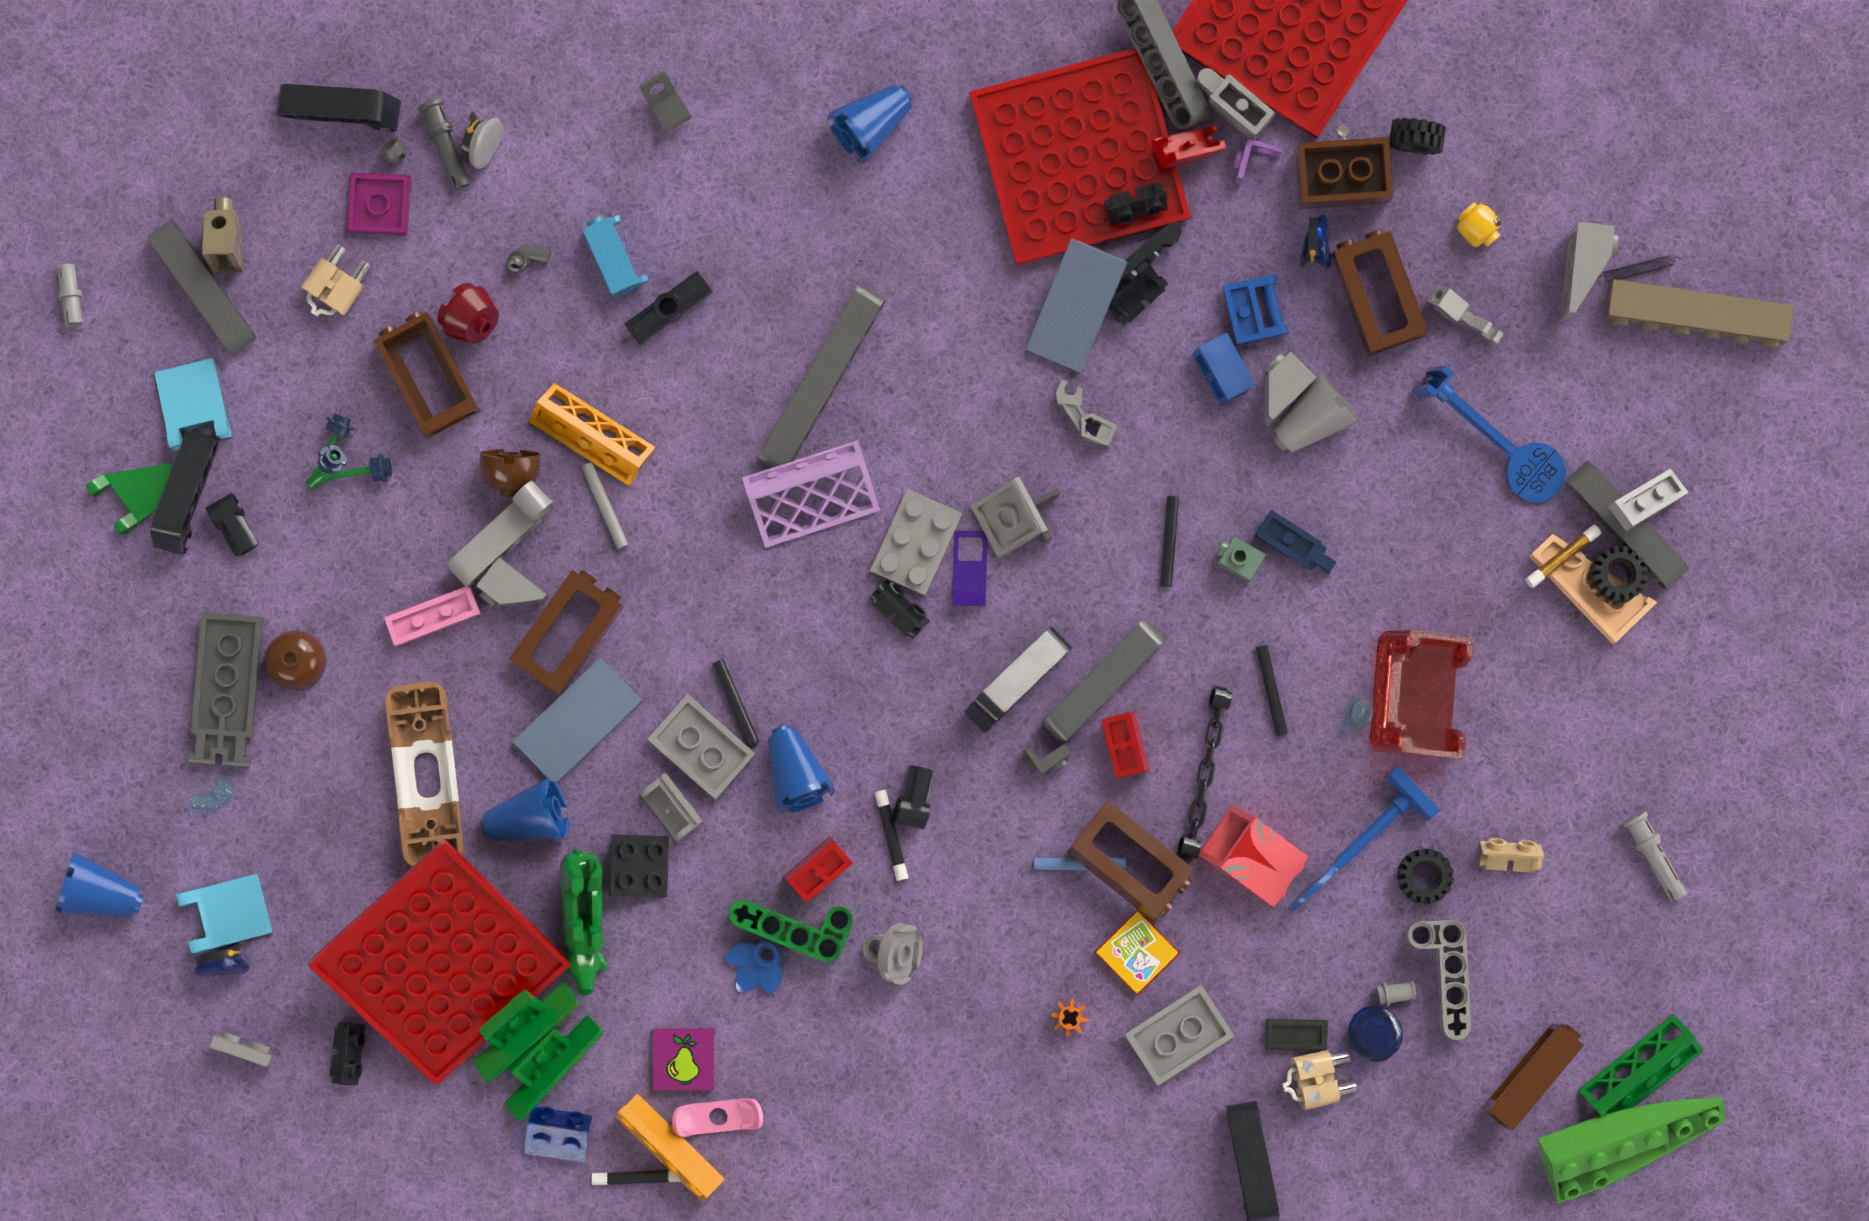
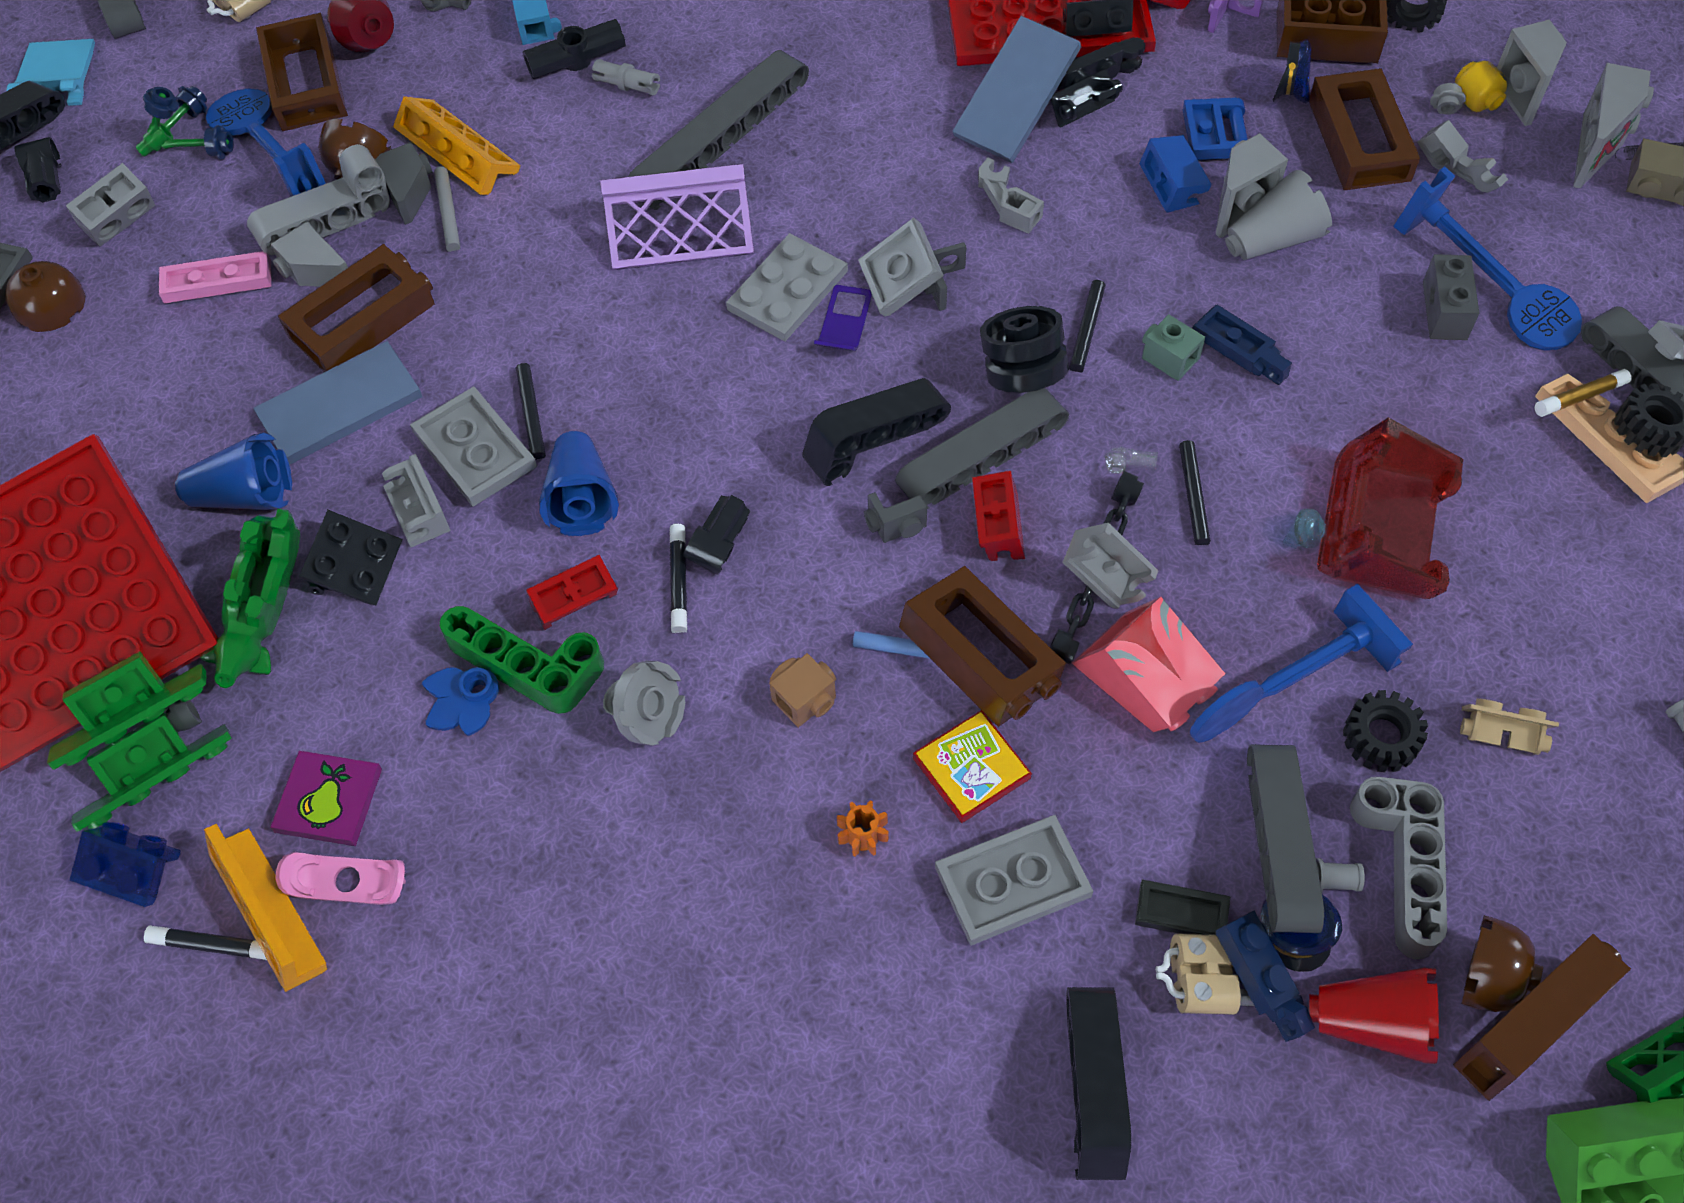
camera: 10 degrees right, 25 degrees down
(319, 563) = (111, 205): none -> light grey brick
(386, 428) = (245, 112): none -> blue piece
(420, 725) = (144, 373): medium nougat piece -> none
(562, 486) = (406, 179): none -> dark grey slope
(722, 331) = (626, 77): none -> light grey pin
(890, 598) = (759, 353): black hinge -> none
(1006, 916) = (803, 688): none -> medium nougat brick
(1124, 592) = (1024, 349): none -> black wheel
(1213, 782) = (1109, 564): none -> light grey hinge
(1218, 668) = (1120, 458): none -> clear arm
(1354, 1074) = (1265, 975): none -> dark blue hinge
(1359, 976) = (1284, 840): none -> dark grey beam
(1432, 1088) = (1382, 1012): none -> red cone
(1451, 242) = (1448, 98): none -> light grey plate
(1459, 472) = (1450, 297): none -> dark grey brick
(1506, 1047) = (1501, 967): none -> reddish brown cylinder
(1520, 212) = (1529, 66): none -> light grey slope

